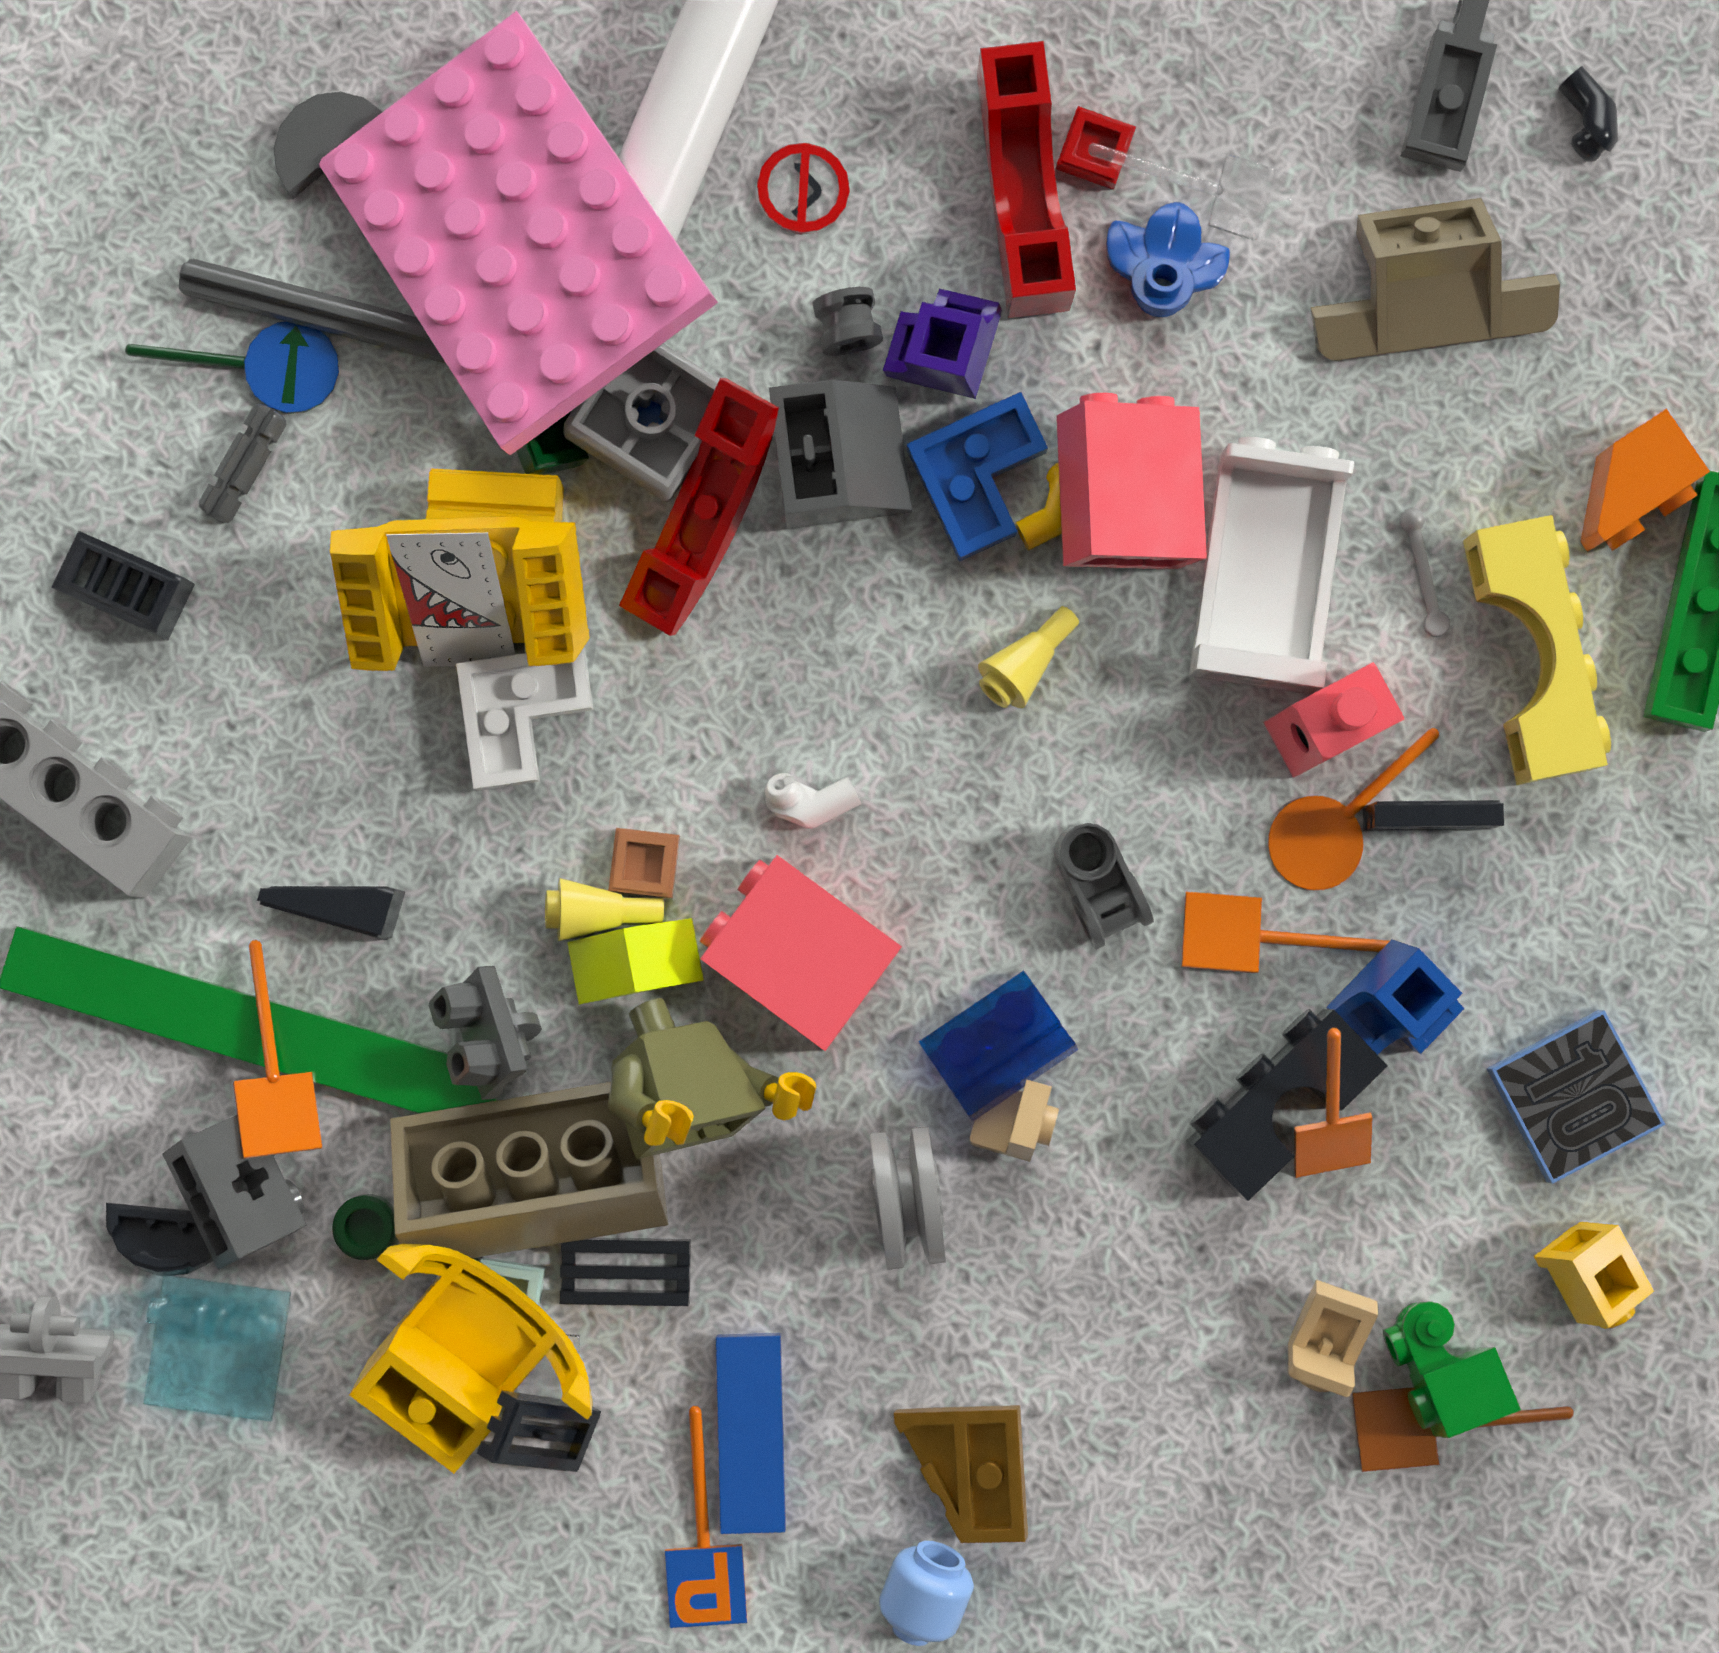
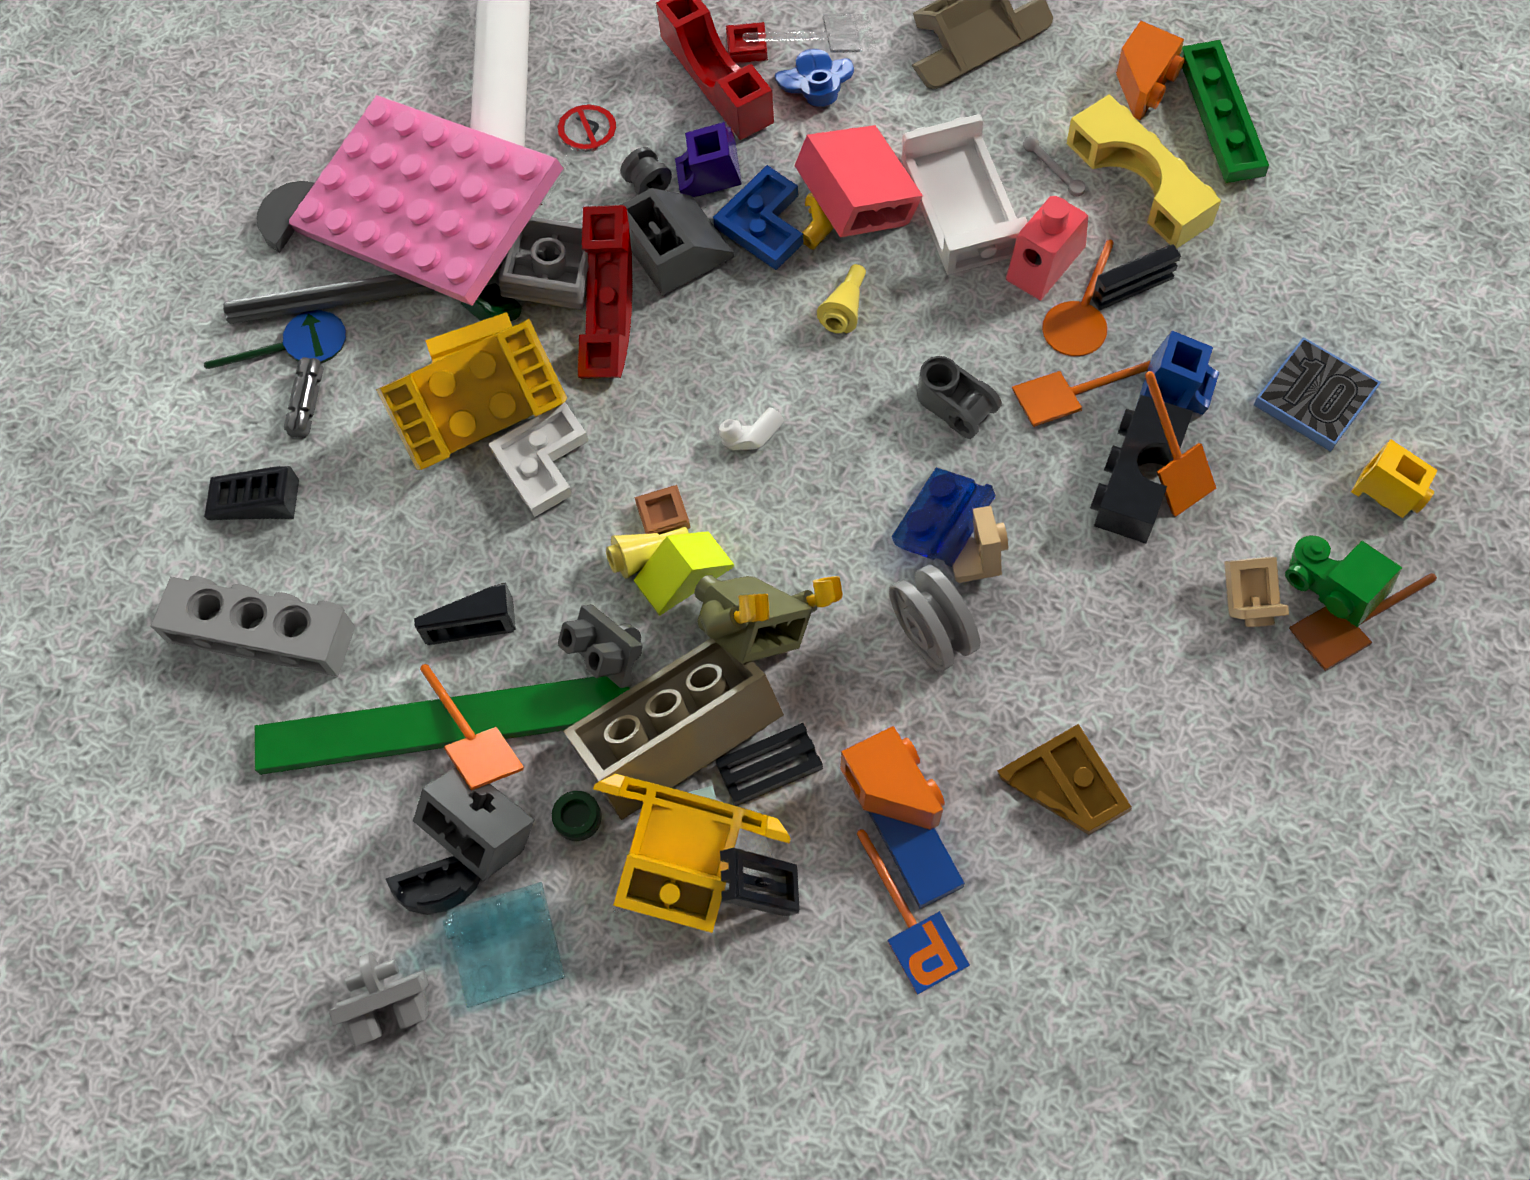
camera: 20 degrees left, 20 degrees down
(452, 596) = (468, 385): white sticker -> none
(749, 1378) = (889, 782): none -> orange slope
(798, 950) = (787, 514): coral brick -> none
(926, 1593) = (1083, 877): light blue head -> none

